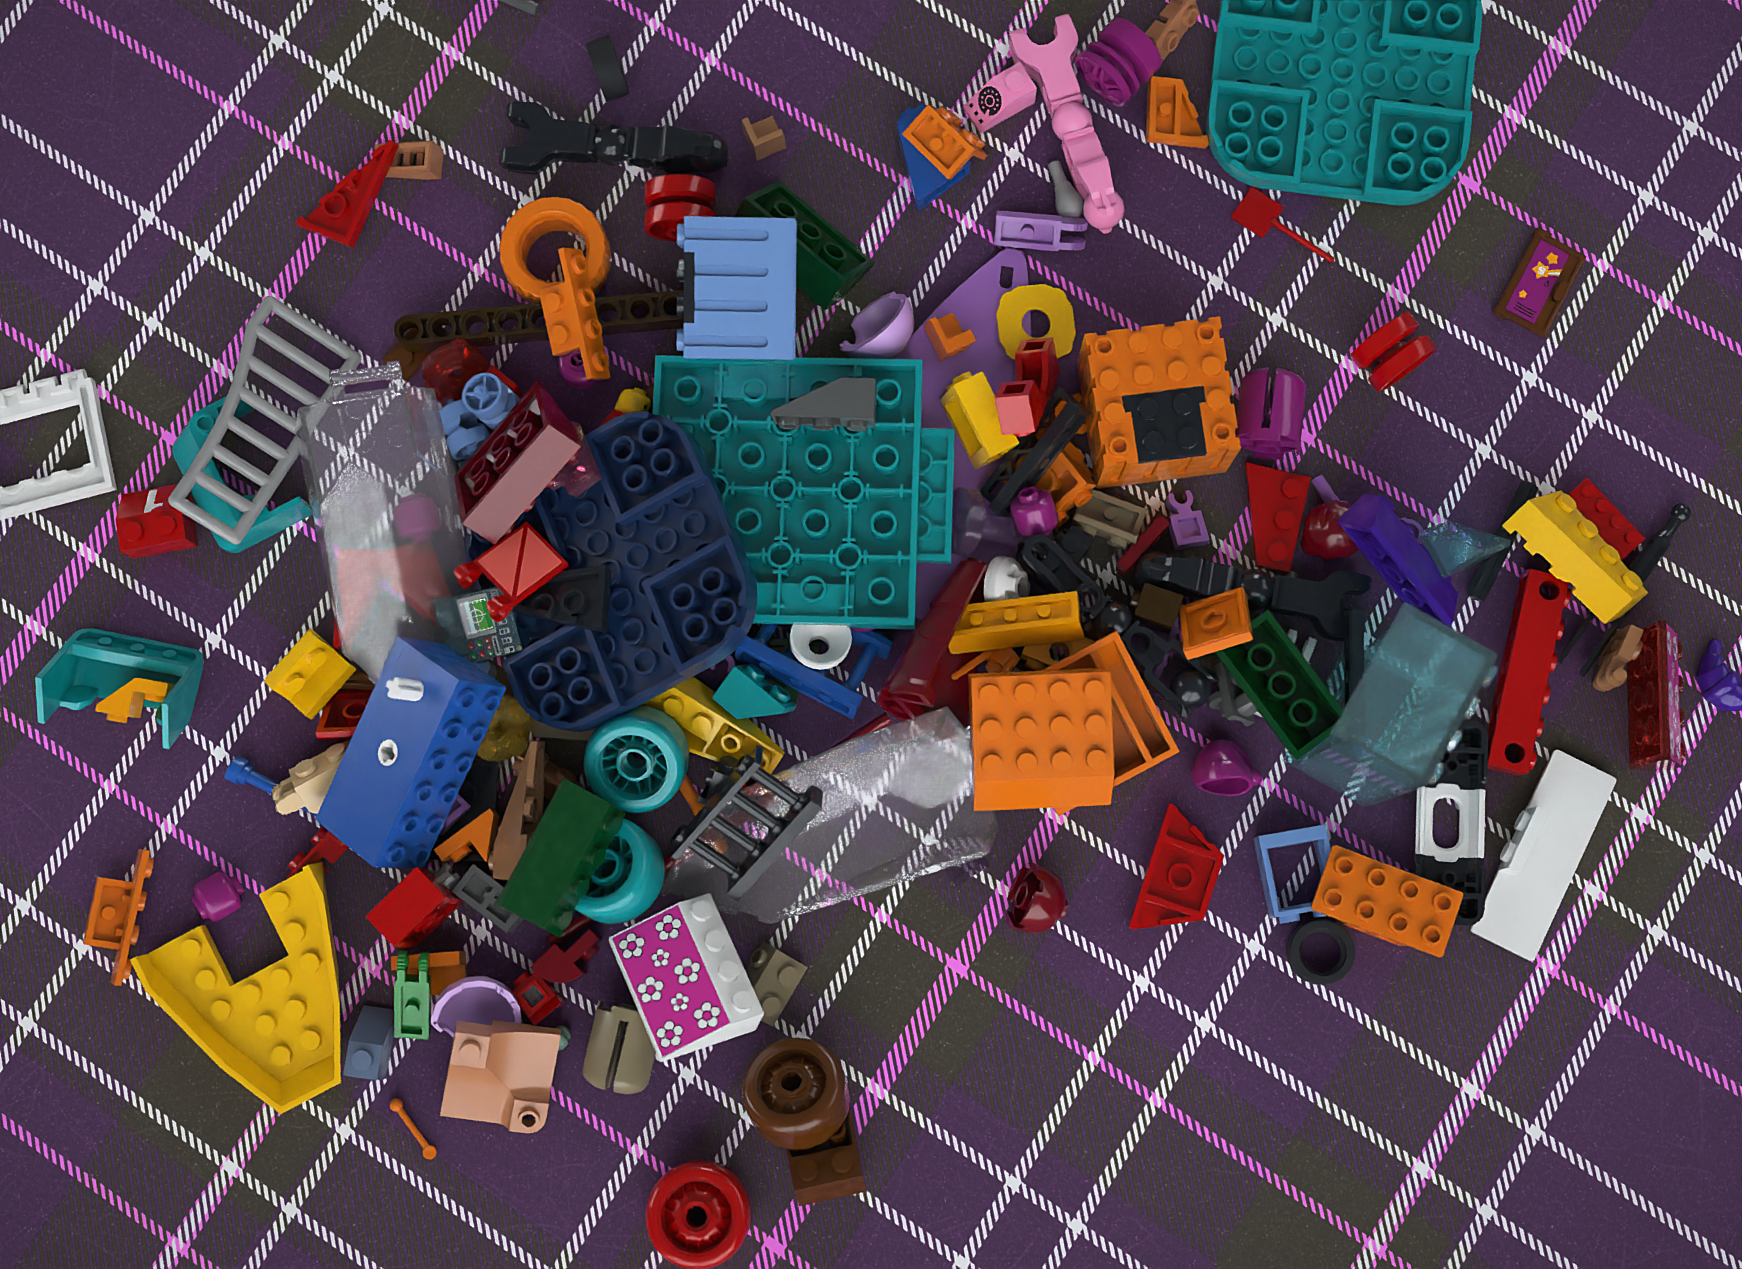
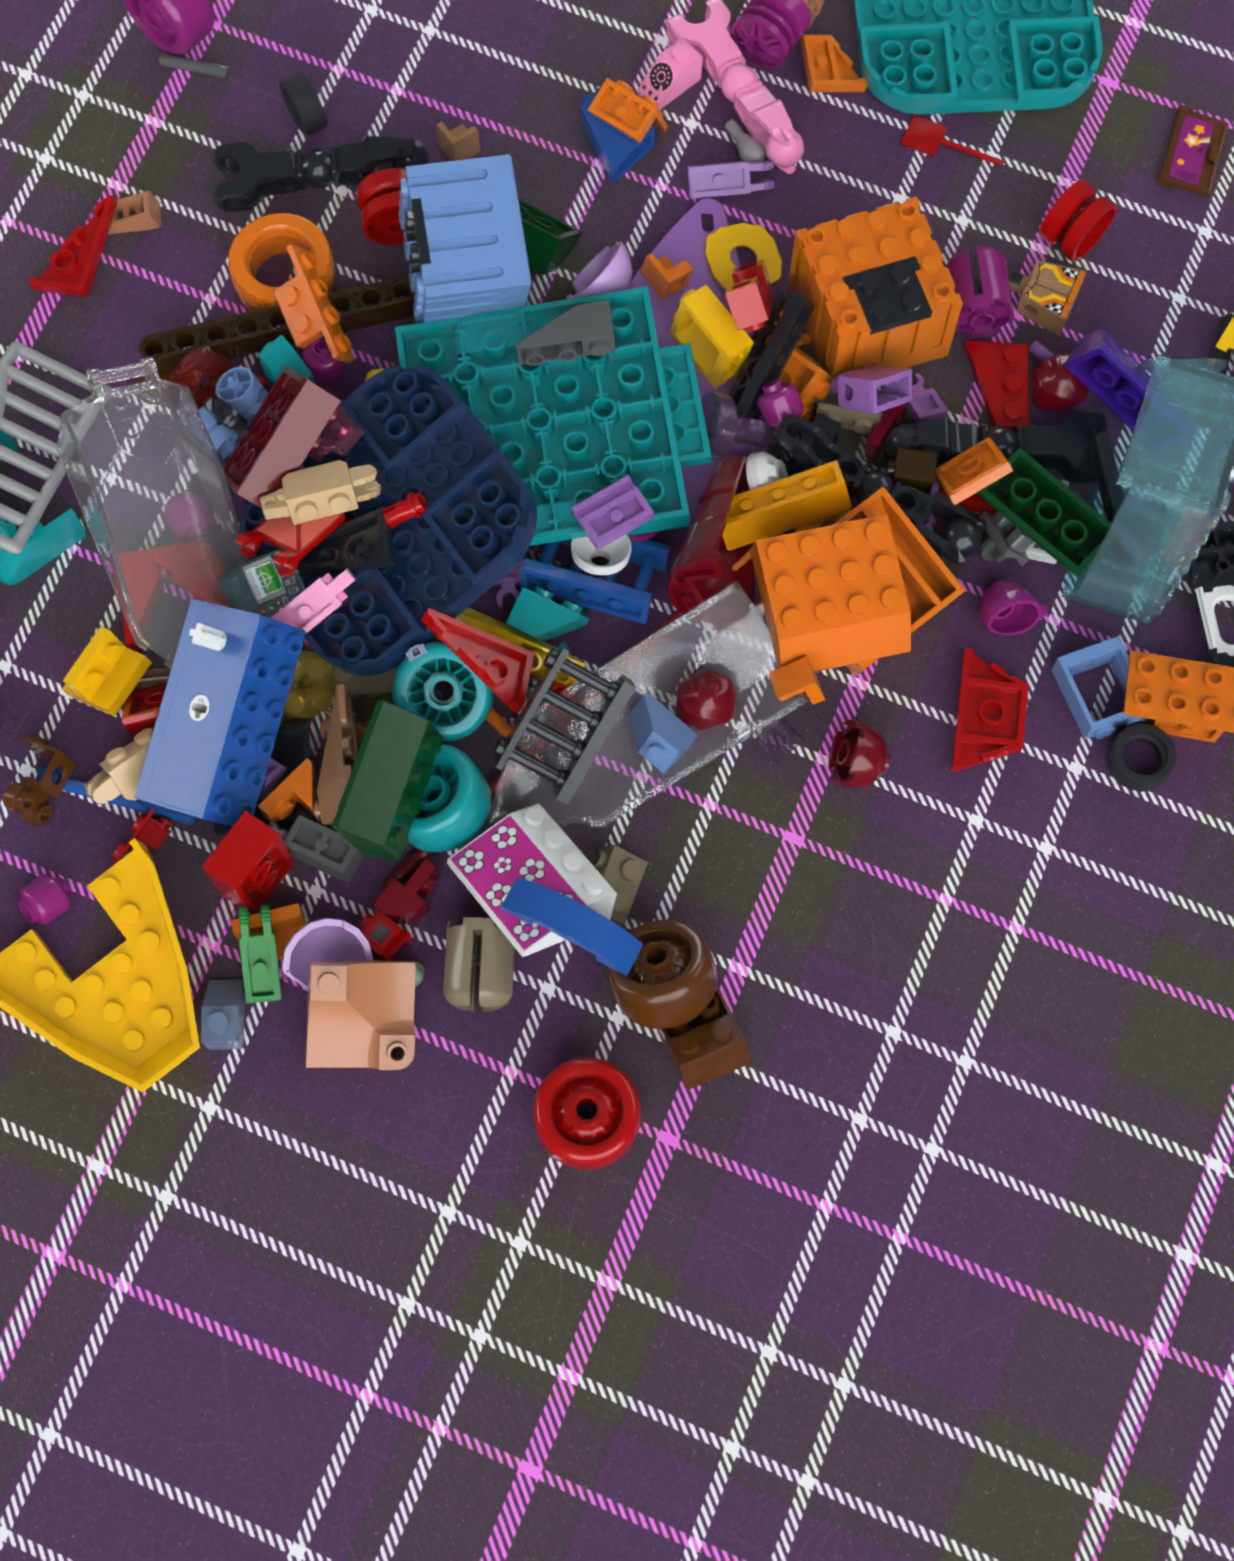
camera: 15 degrees left, 10 degrees down
(218, 793) = (31, 796): none -> reddish brown piece
(429, 1151) = (300, 1110): orange hinge -> none
(468, 426) = (227, 415): none -> black gear
(521, 652) = (316, 601): none -> bright pink hinge
(534, 366) = (276, 356): none -> teal slope
(546, 536) = (321, 492): none -> tan hinge
(608, 729) = (417, 650): none -> sand blue piece
(633, 571) = (406, 509): none -> red pin
(689, 745) = (494, 660): none -> red wing
(713, 1039) = (574, 923): none -> blue slope
(836, 612) = (612, 512): none -> medium lavender plate
(842, 843) = (659, 733): none -> medium blue slope
(896, 813) = (706, 699): none -> dark red hair
(986, 821) = (795, 679): none -> orange panel
(1133, 512) = (859, 390): none -> medium lavender torso
(1344, 425) = (1047, 293): none -> medium nougat torso

